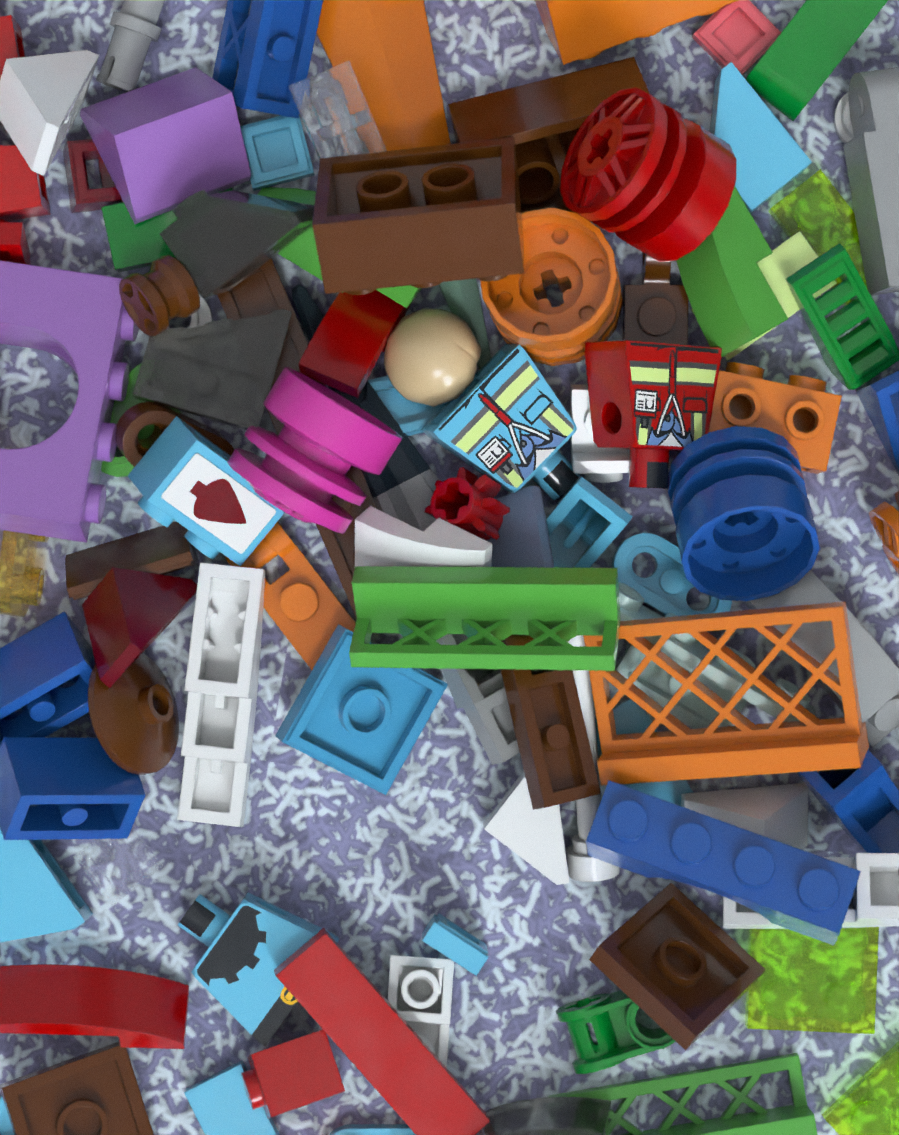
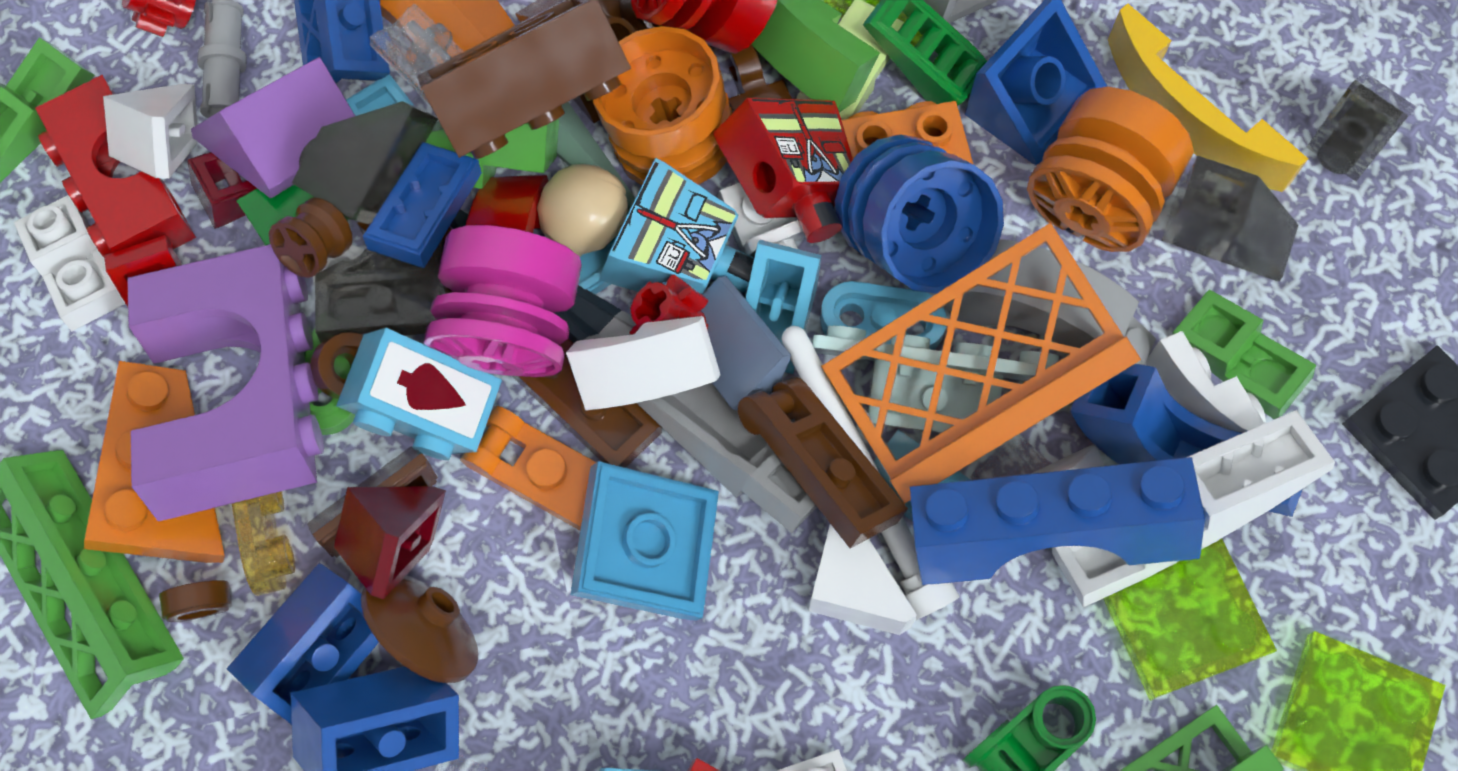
camera: 25 degrees left, 20 degrees down
(221, 694) = (504, 586): white slope -> none
(273, 307) = (422, 205): none -> blue plate
(455, 943) = (833, 730): medium azure tile -> none
(486, 608) = (723, 380): bright green fence -> none
(677, 965) = (1059, 652): reddish brown plate -> none

